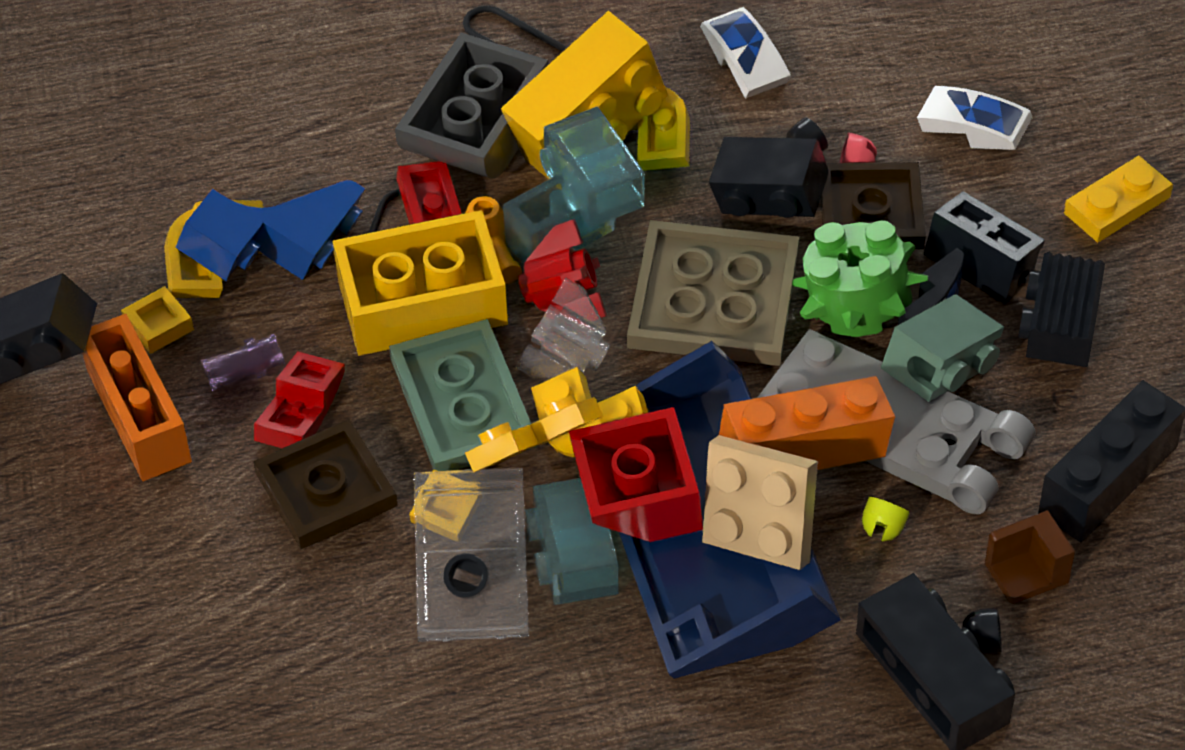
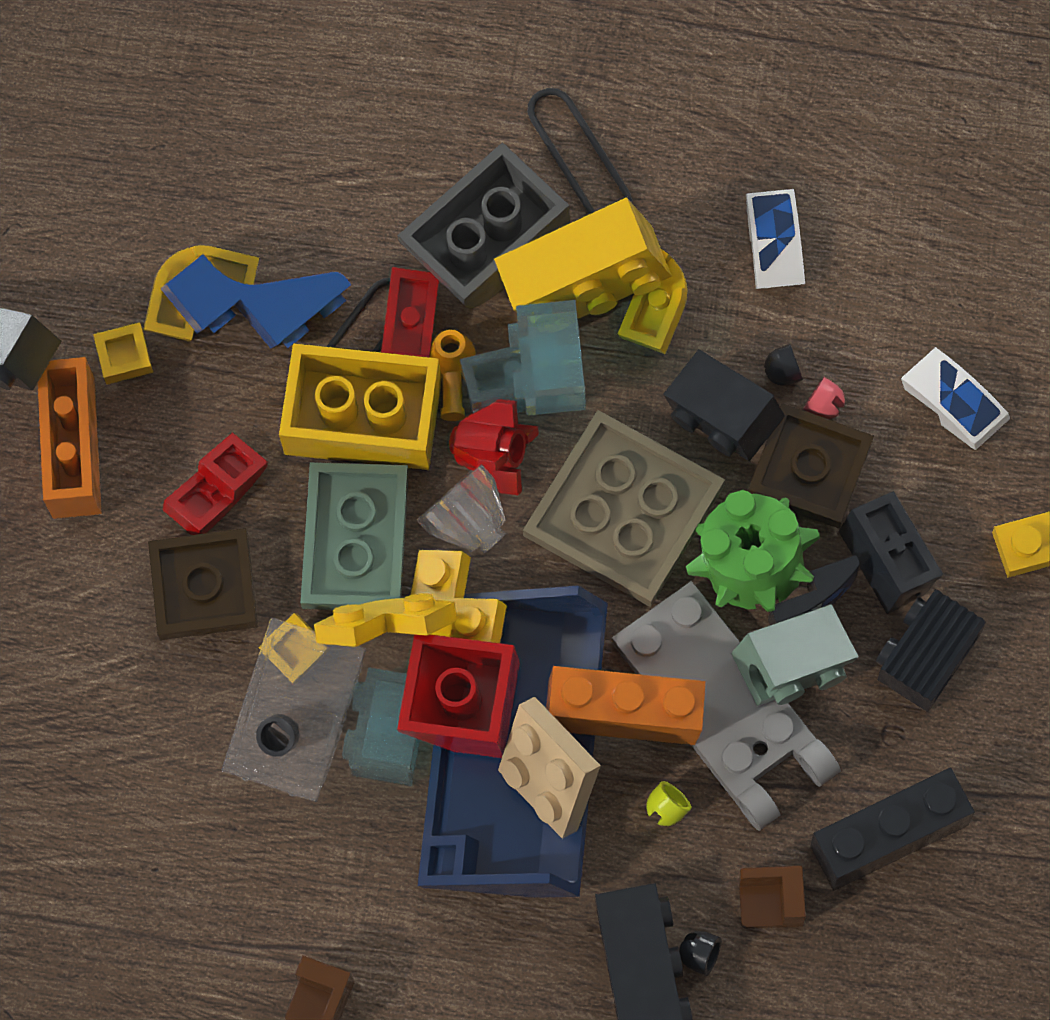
camera: 25 degrees right, 20 degrees up
(243, 361) = (176, 427): clear purple pin -> none

